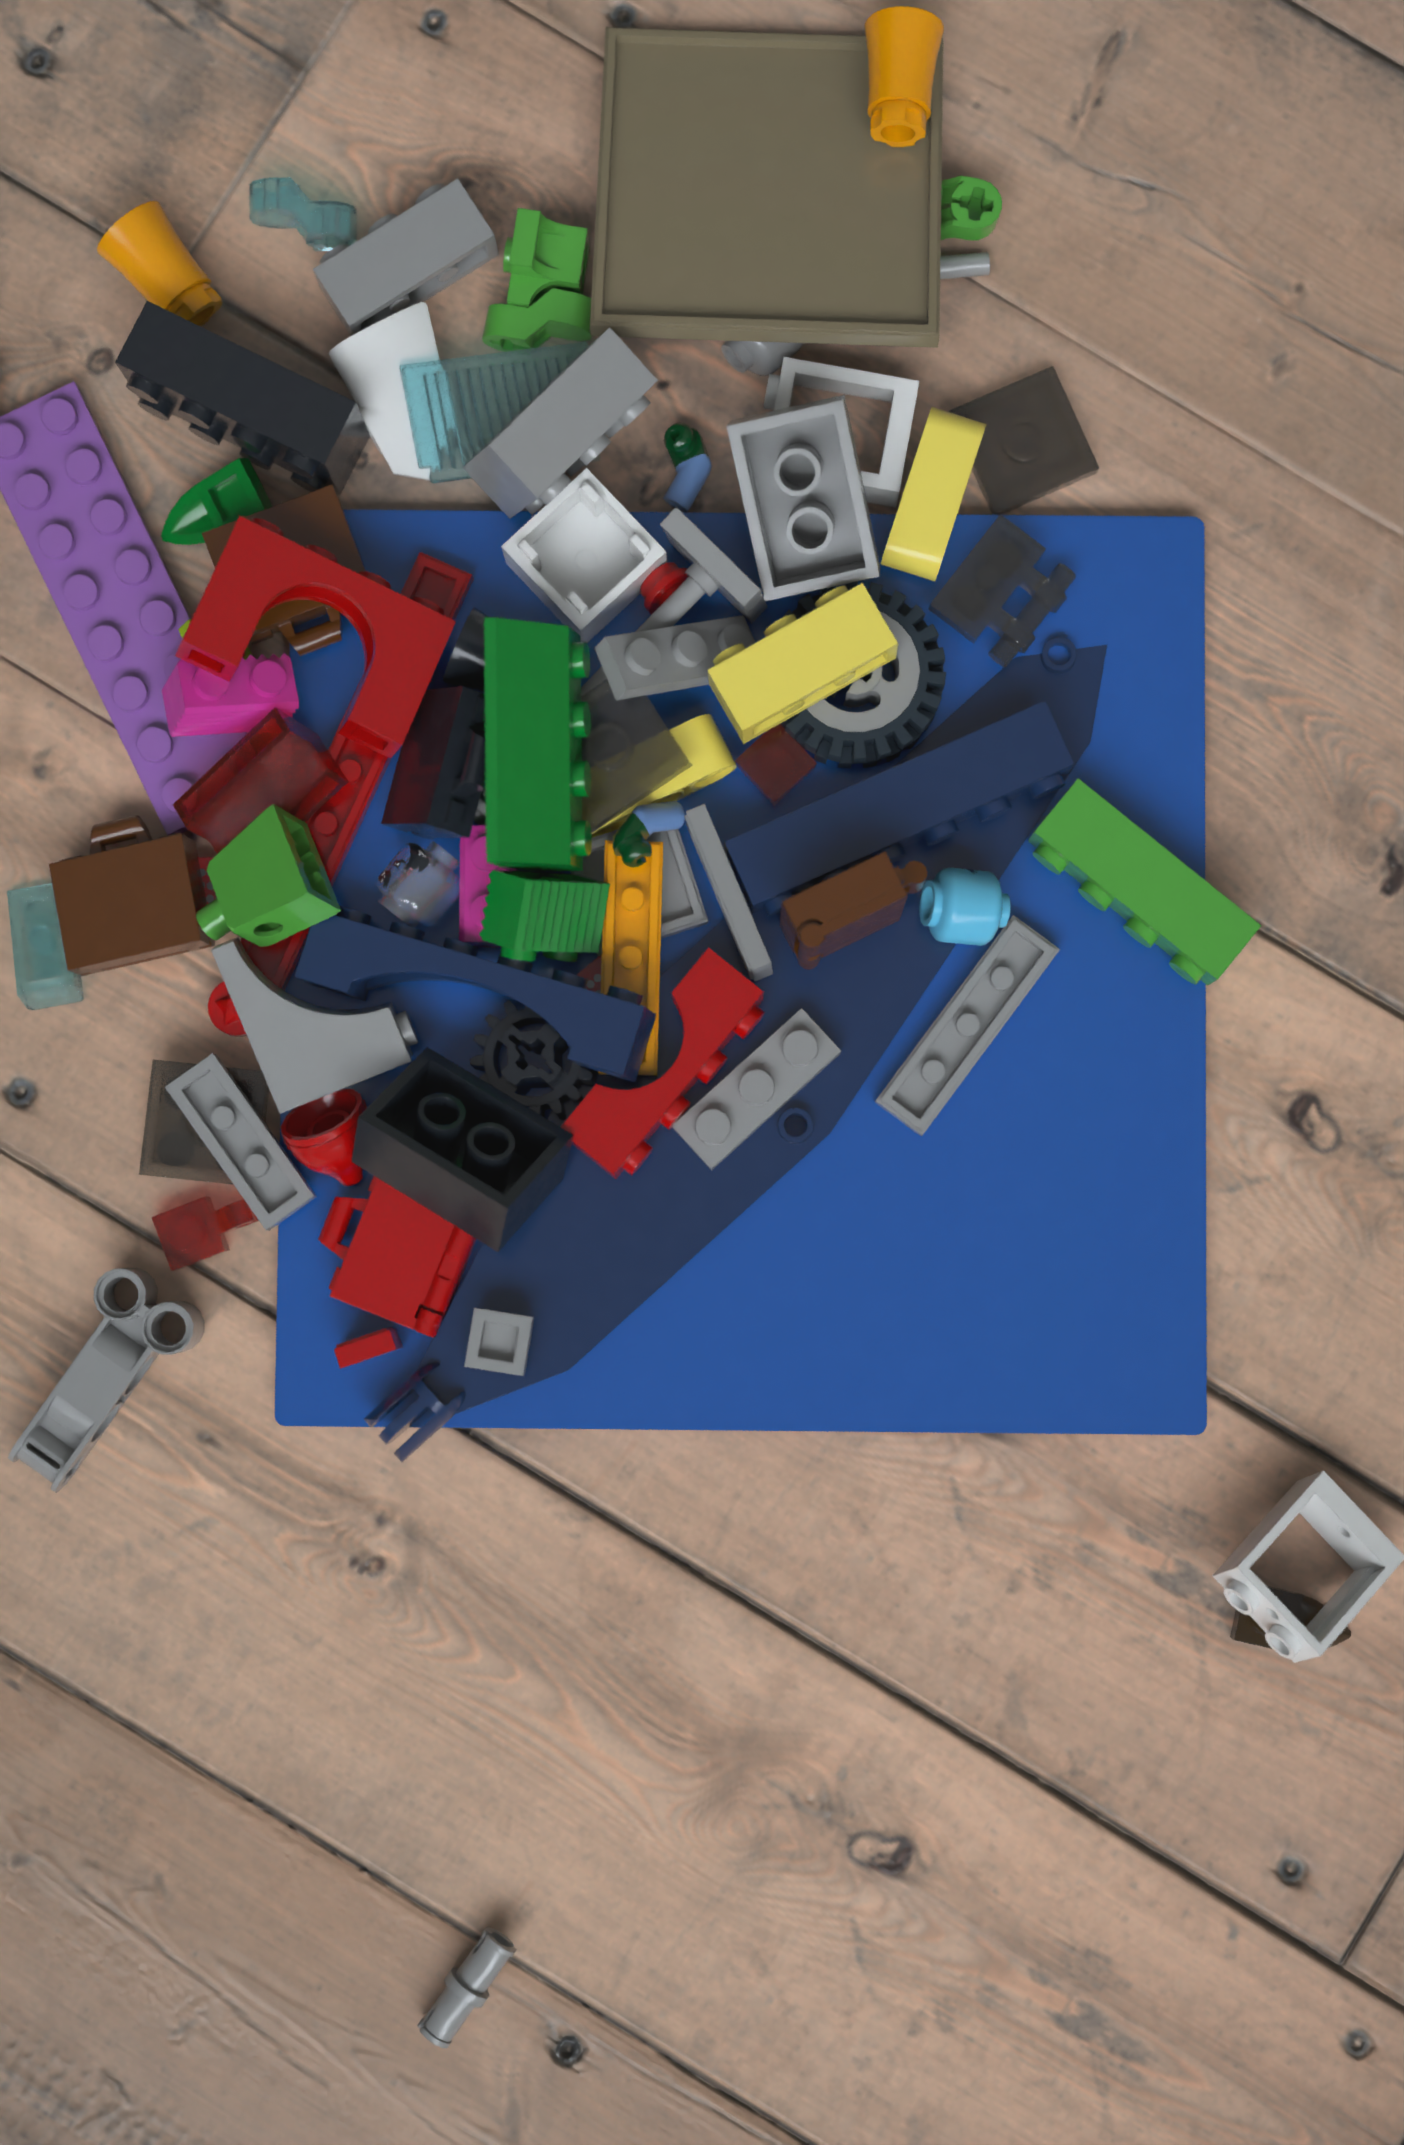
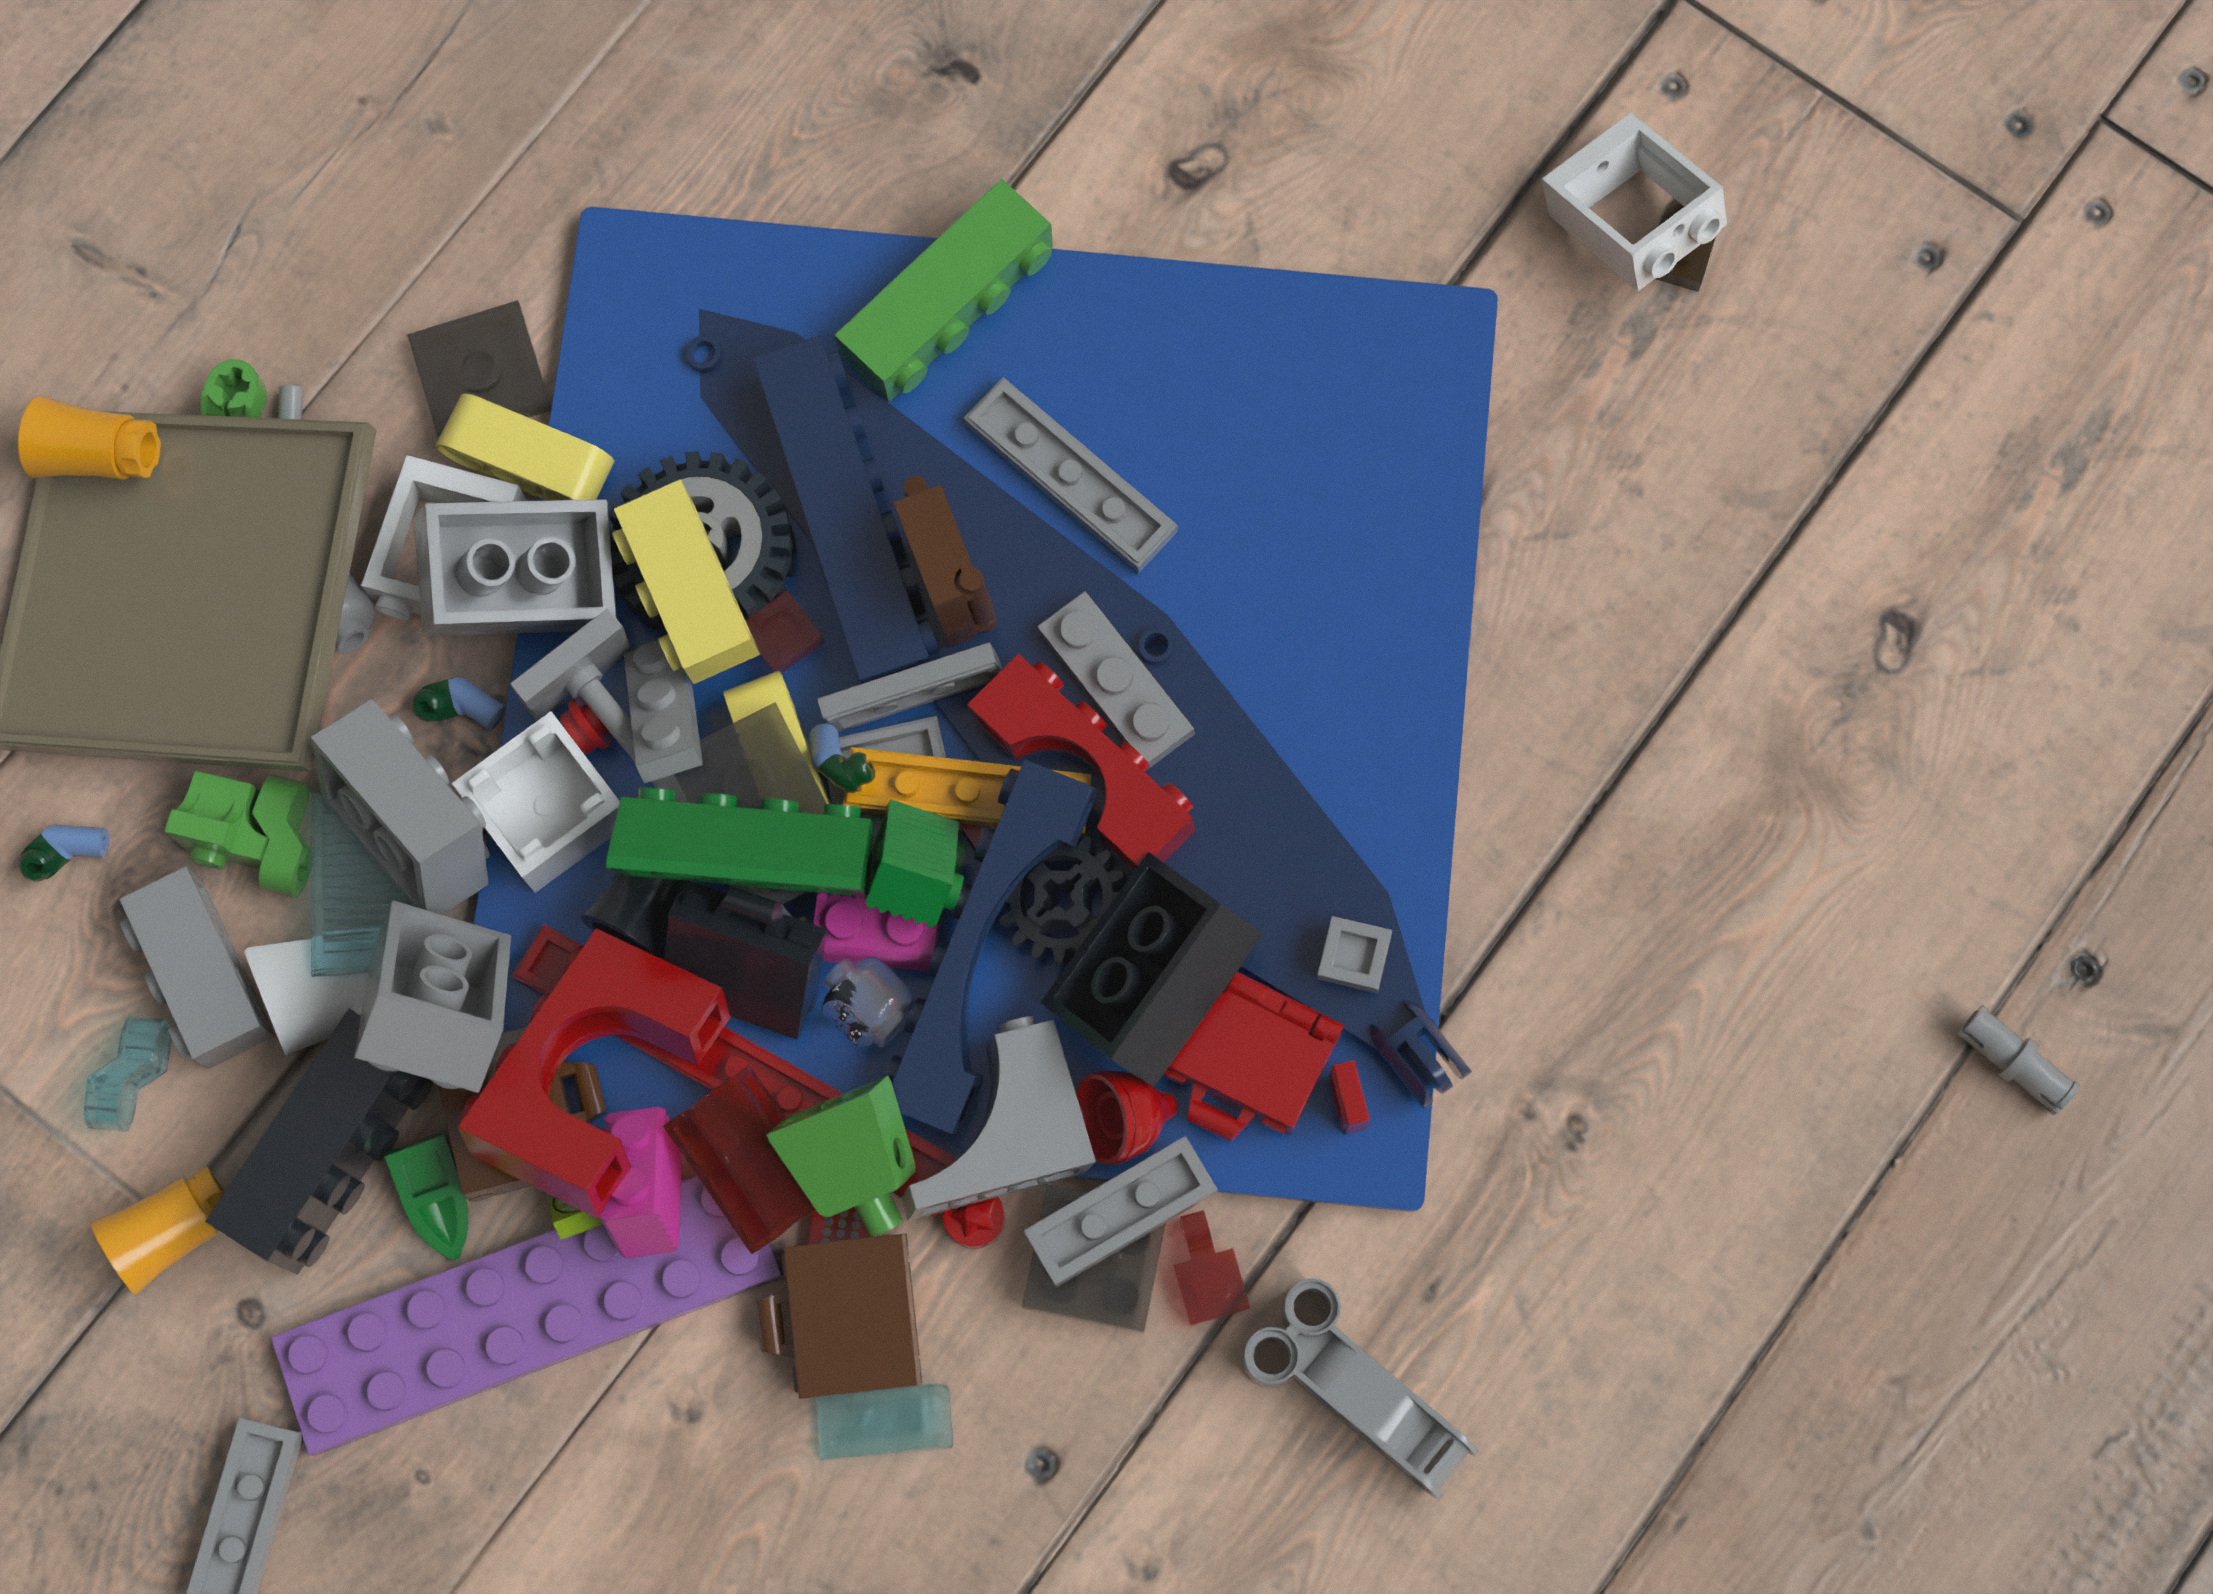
camera: 85 degrees left, 10 degrees down
(369, 478) = (434, 997): none -> light grey brick
(514, 116) = (58, 846): none -> arm
(964, 906) = (953, 454): medium azure head -> none
(987, 581) = (620, 410): clear smoke plate -> none

